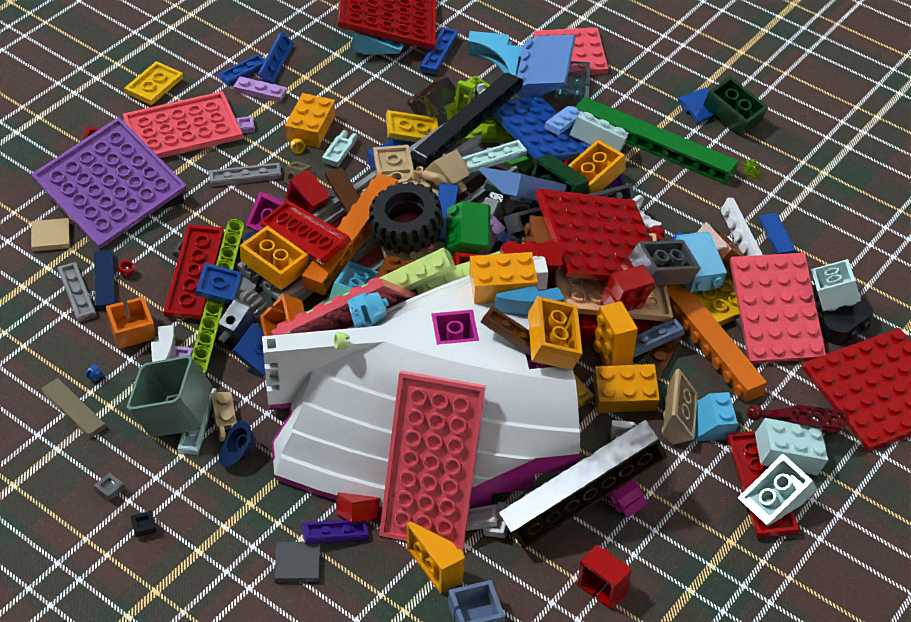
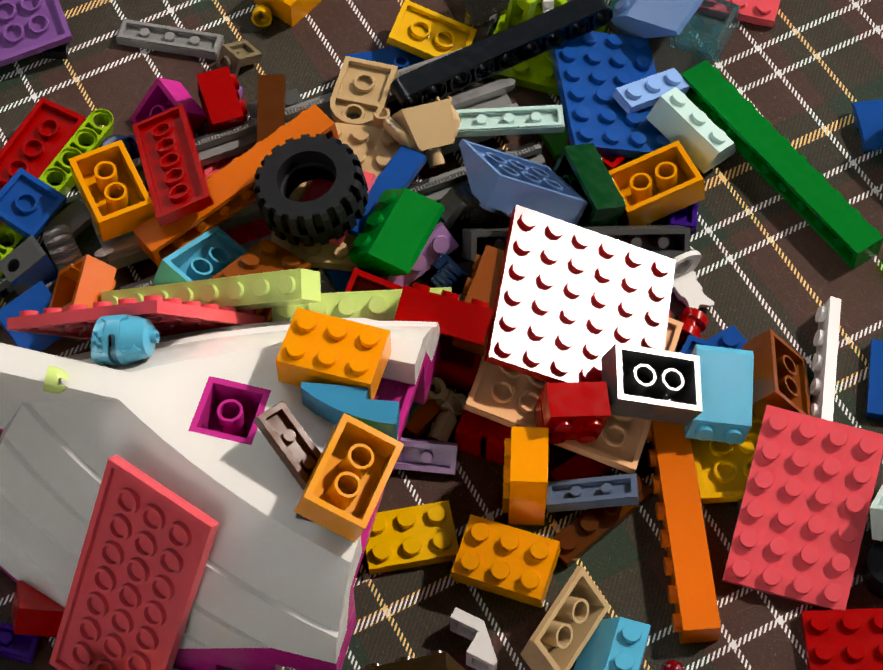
camera: 25 degrees right, 10 degrees up
(339, 149) = (316, 37): light aqua hinge -> none

